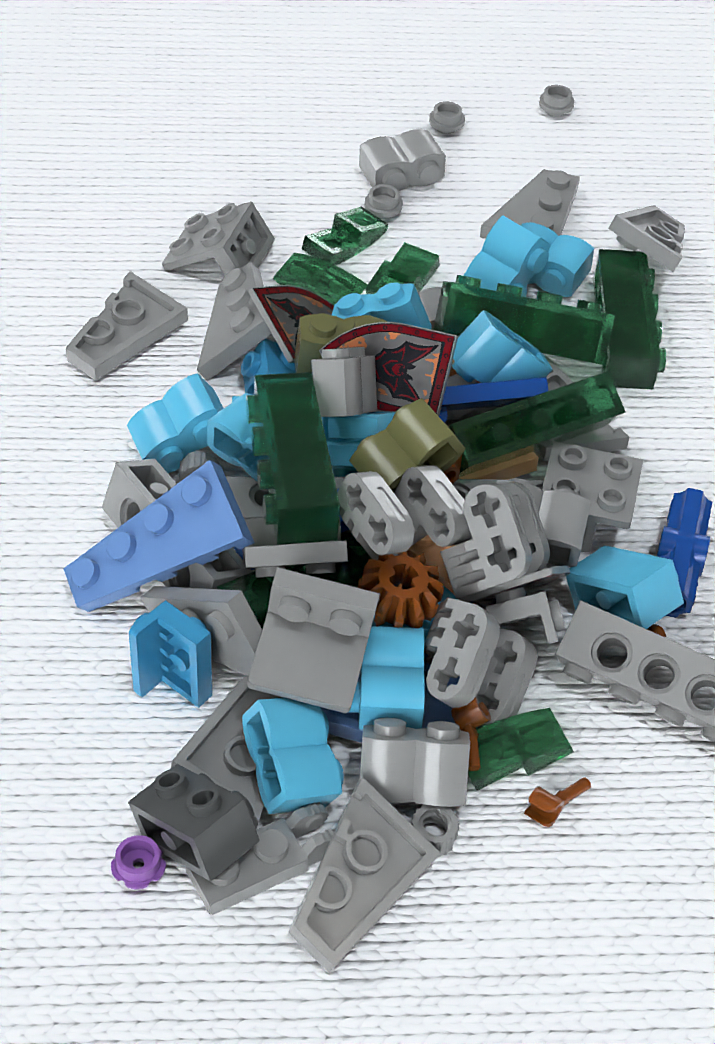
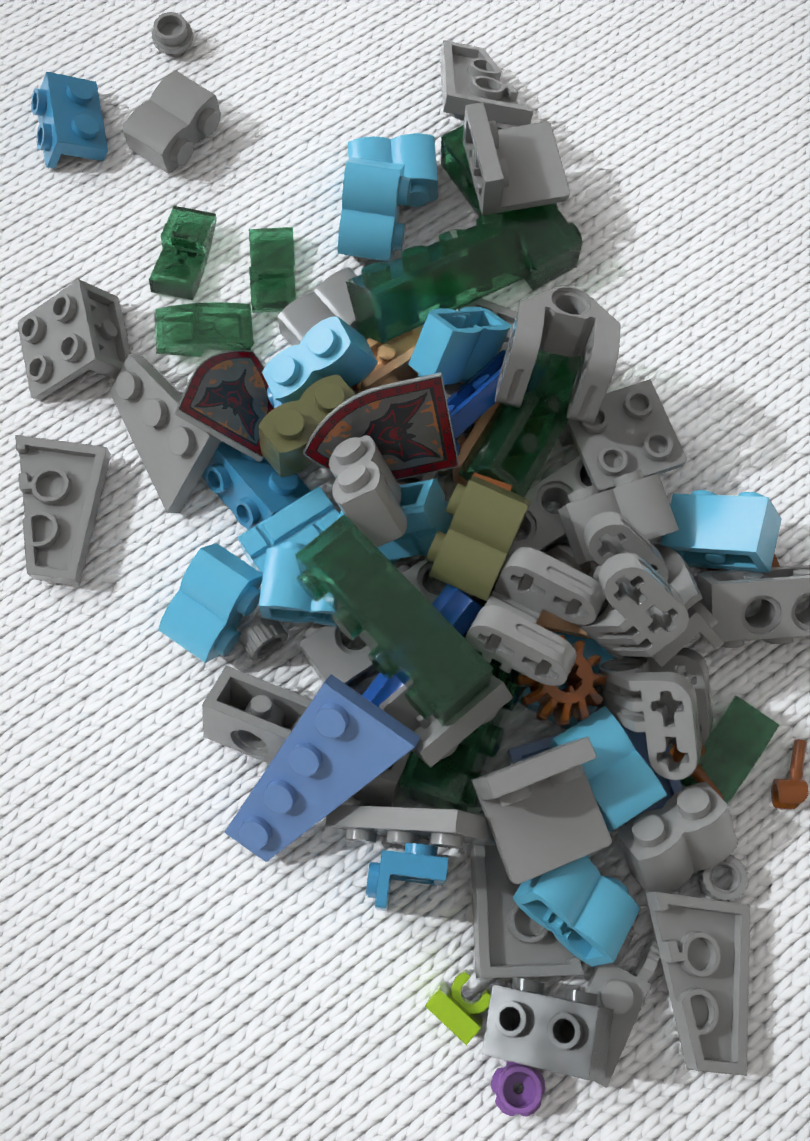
camera: 30 degrees left, 25 degrees up
(136, 769) = (455, 1010): none -> lime tile
(330, 129) = (69, 119): none -> dark azure bracket
(384, 201) = (189, 185): light grey plate -> none
(541, 201) = (336, 107): light grey wing -> none
(576, 354) = (568, 325): none -> light grey piece
(634, 282) = (513, 164): none -> light grey bracket
(686, 542) = (723, 442): blue piece -> none

